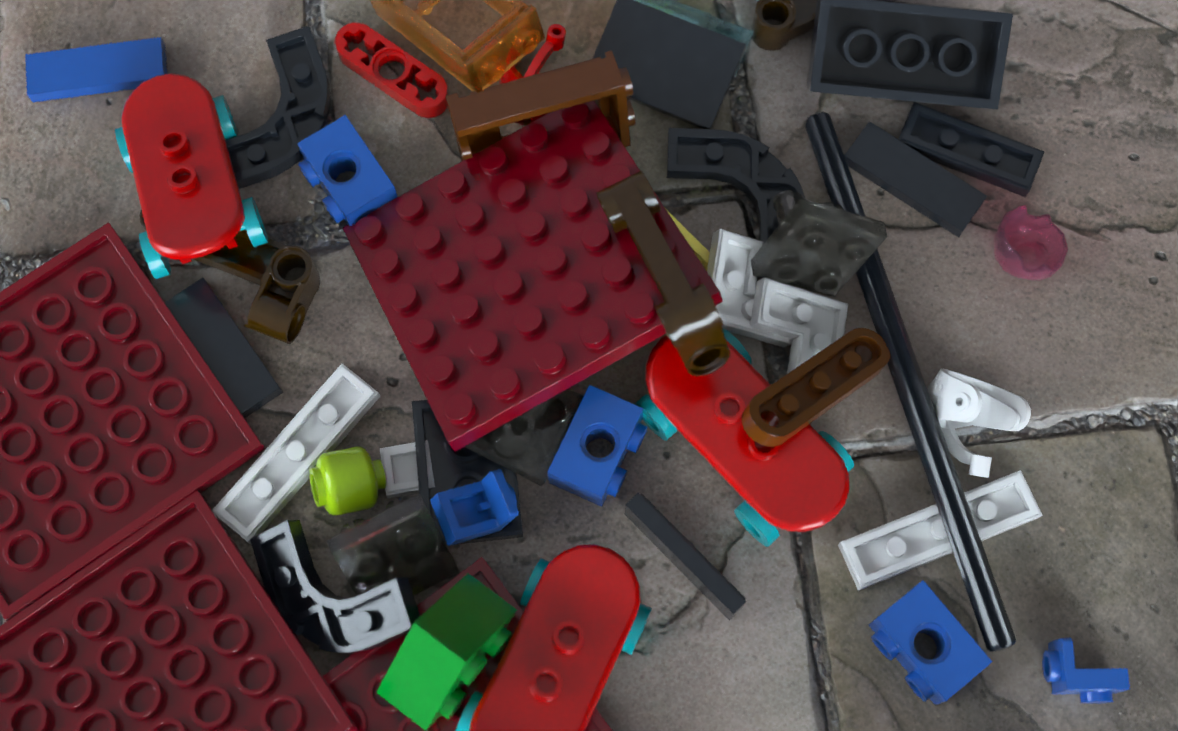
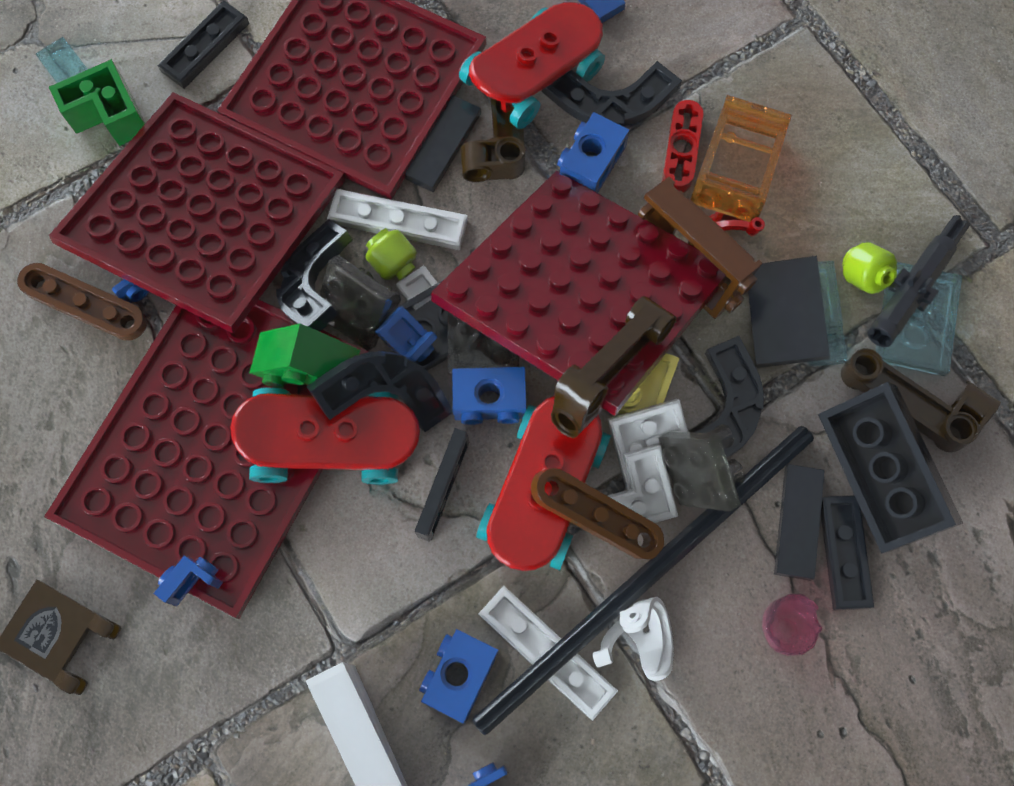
camera: 65 degrees right, 0 degrees up
(517, 565) = (381, 373): none -> black plate

